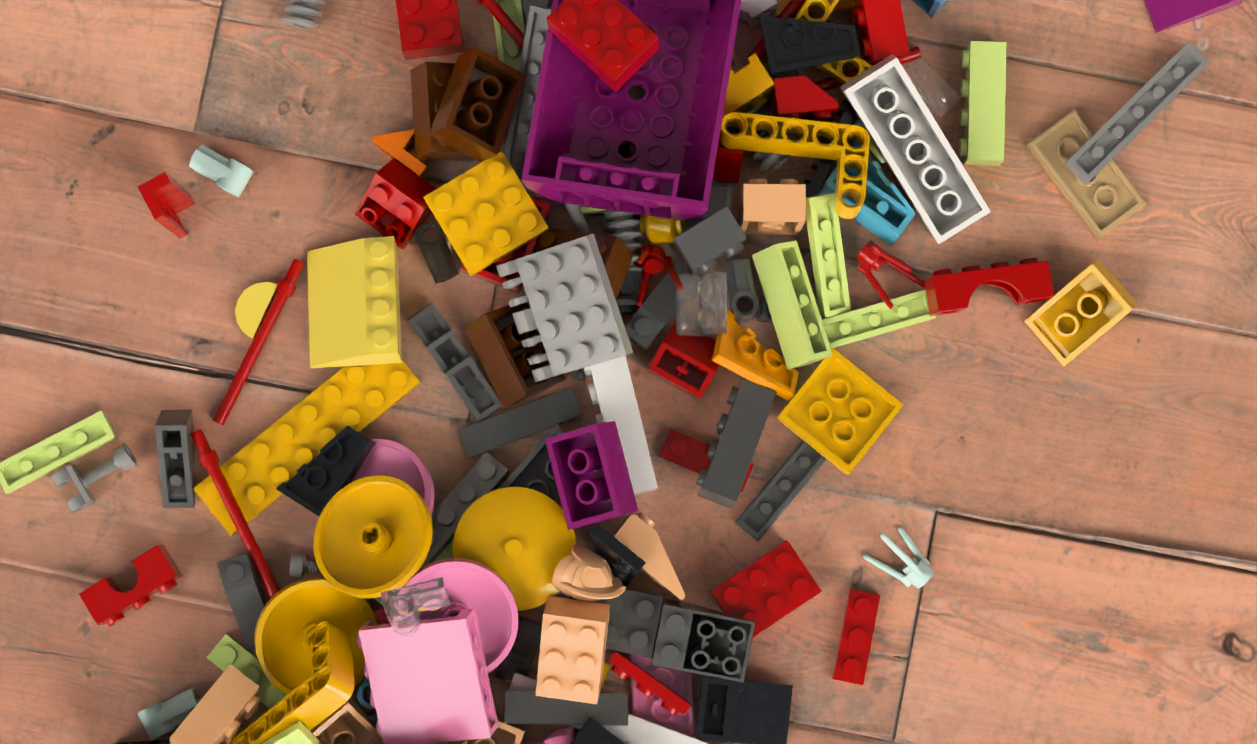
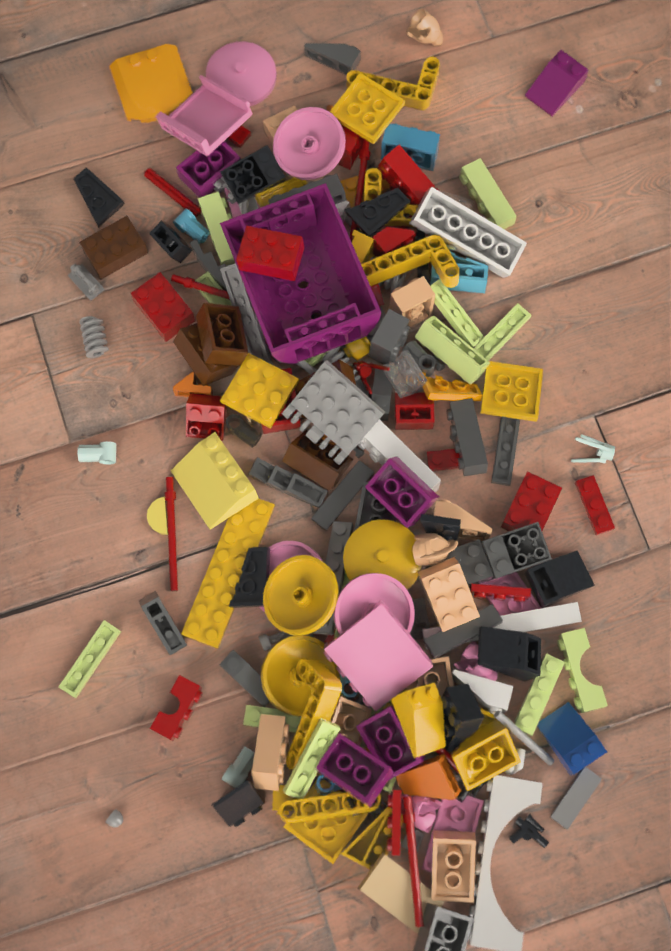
camera: 25 degrees left, 10 degrees down
(122, 458) = (131, 641): light grey bar -> none
(165, 200) = (78, 479): red fence -> none
(209, 460) = (182, 611): red bar -> none
(412, 600) = (342, 615): clear plate -> none
(874, 258) = (479, 302): red plant -> none
(1023, 283) = (564, 272): red arch -> none
(1081, 312) = (604, 271): yellow slope -> none
(1102, 201) = (562, 203): tan tile -> none
(1136, 113) = (568, 158): light grey plate -> none

